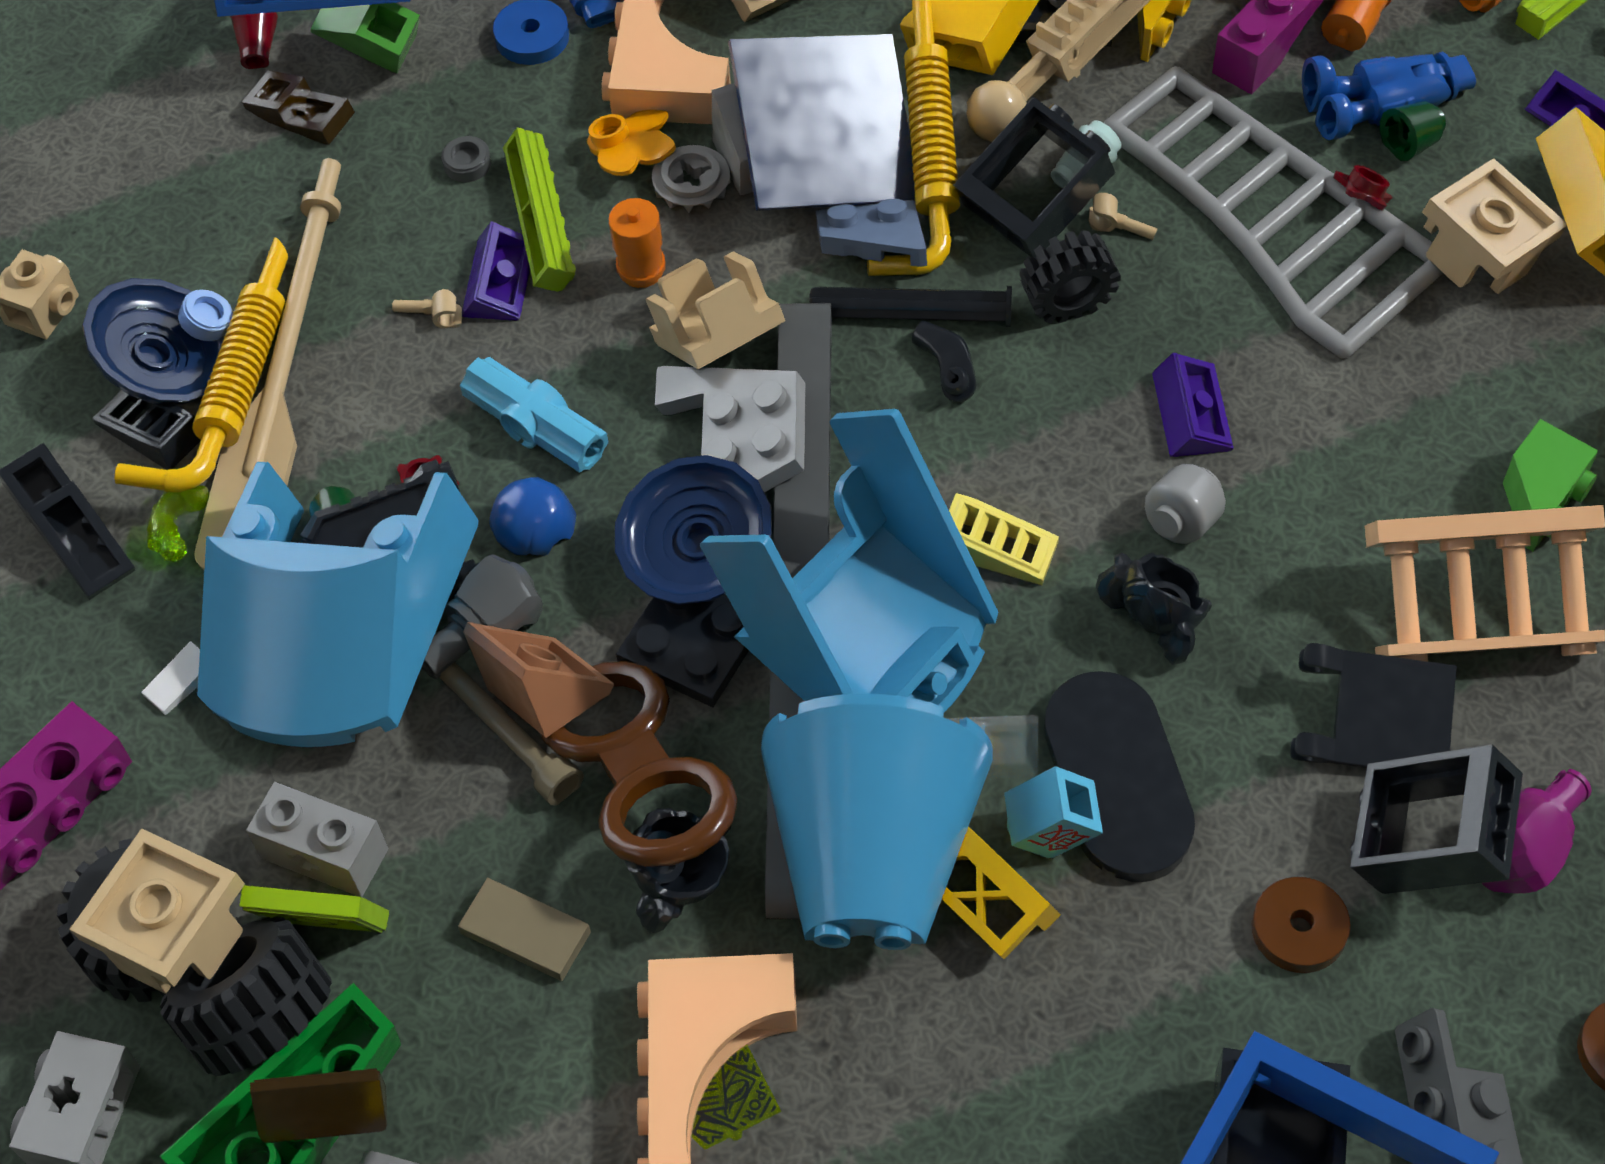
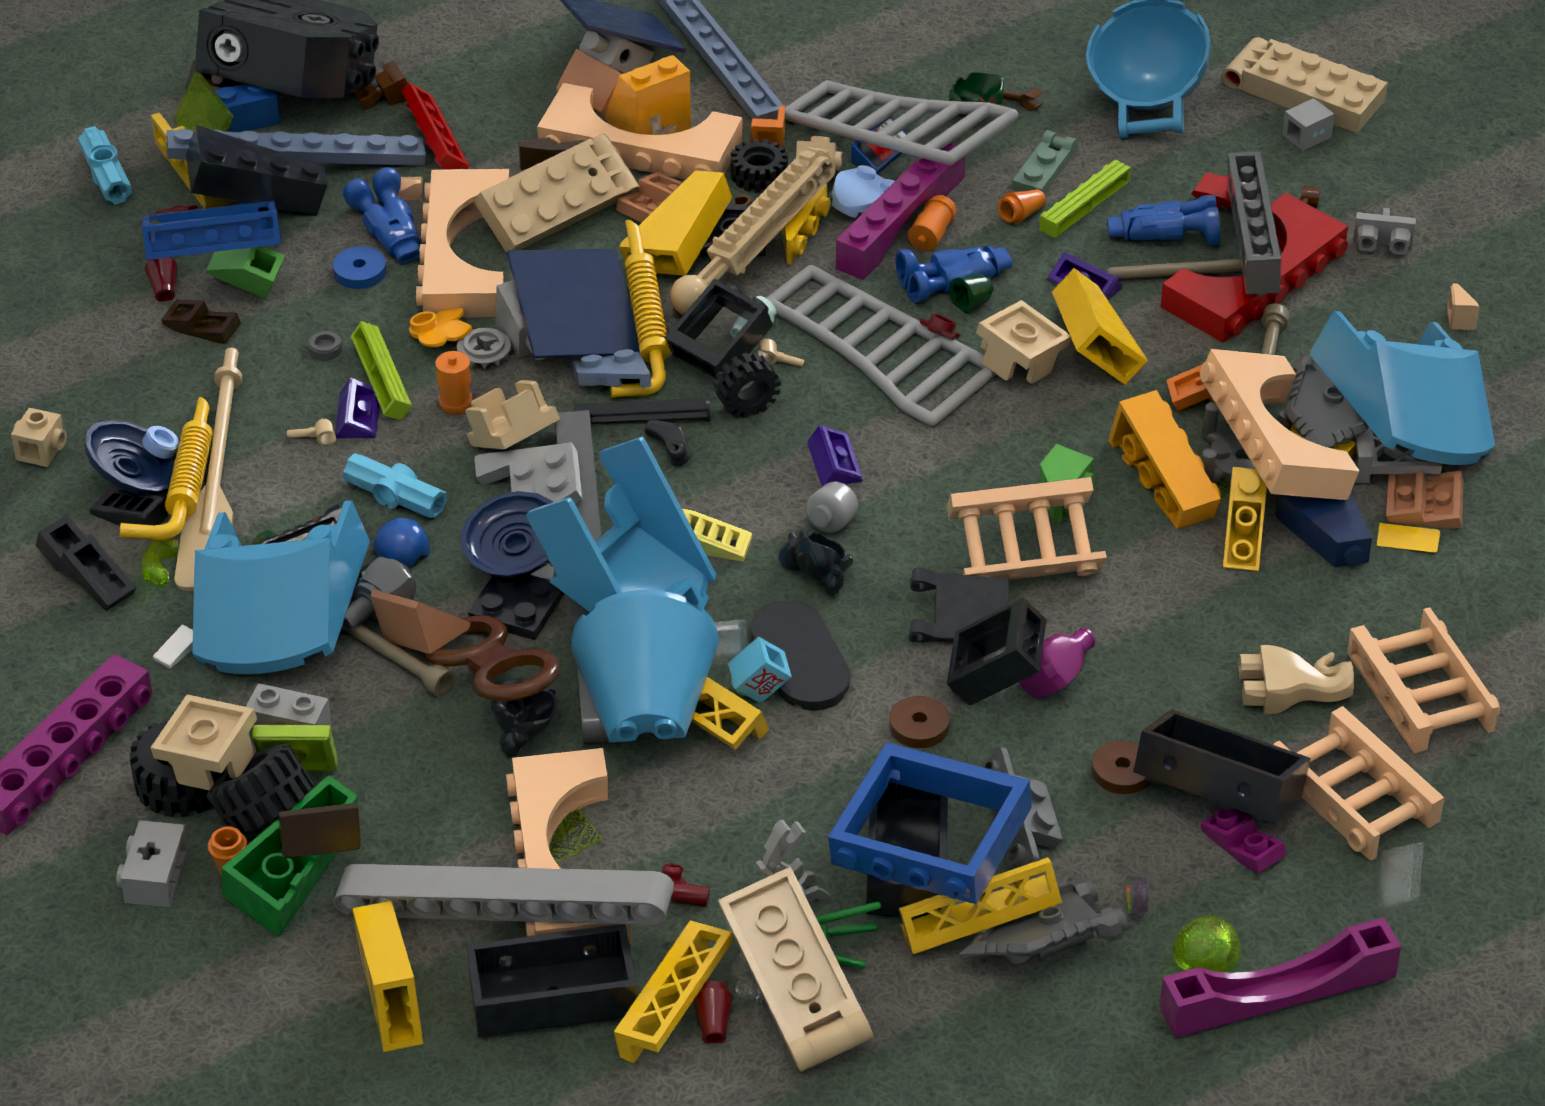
camera: 10 degrees left, 15 degrees down
(182, 1099) = (225, 844): none -> orange cone
(524, 929) = (427, 759): dark tan tile -> none

